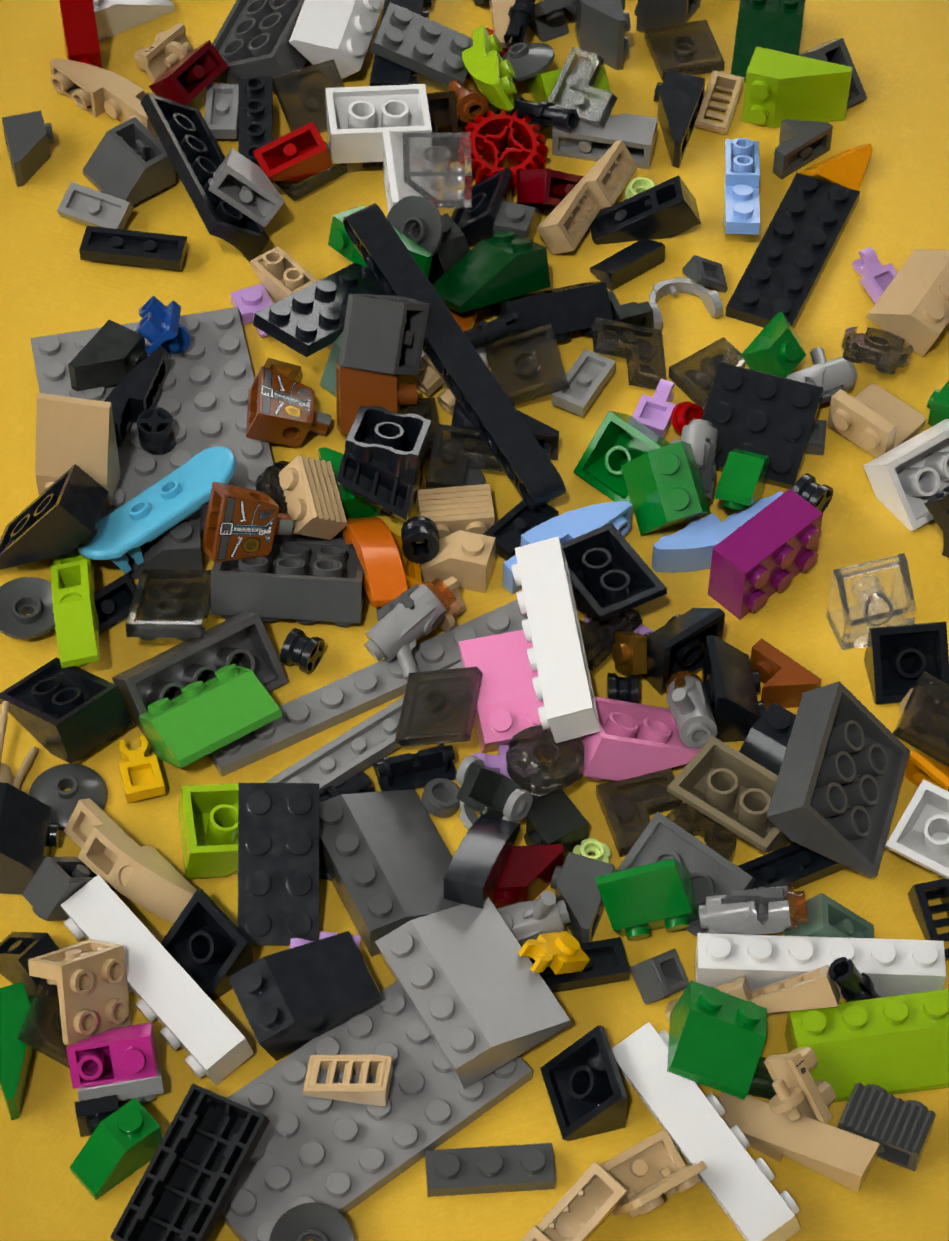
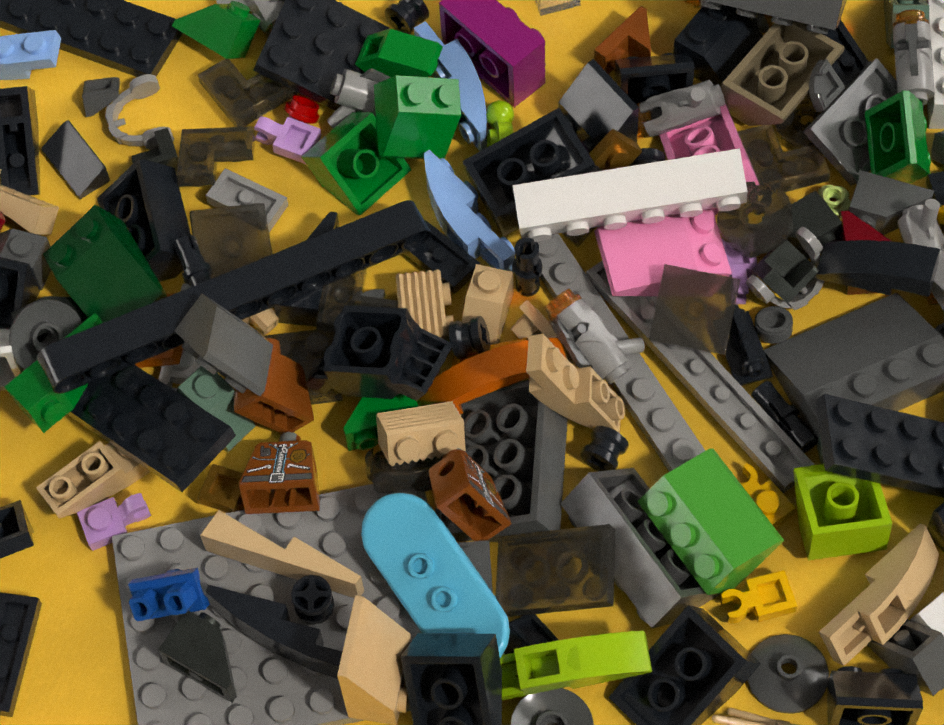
camera: 85 degrees left, 10 degrees up
(192, 418) = (238, 542): none -> tan slope
(244, 773) = (767, 497): none -> yellow plate
(347, 598) = (571, 391): none -> tan slope
(495, 579) = (527, 267): none -> black pin
(688, 572) = (500, 117): none -> lime plate
(713, 827) = (824, 85): none -> dark grey tile

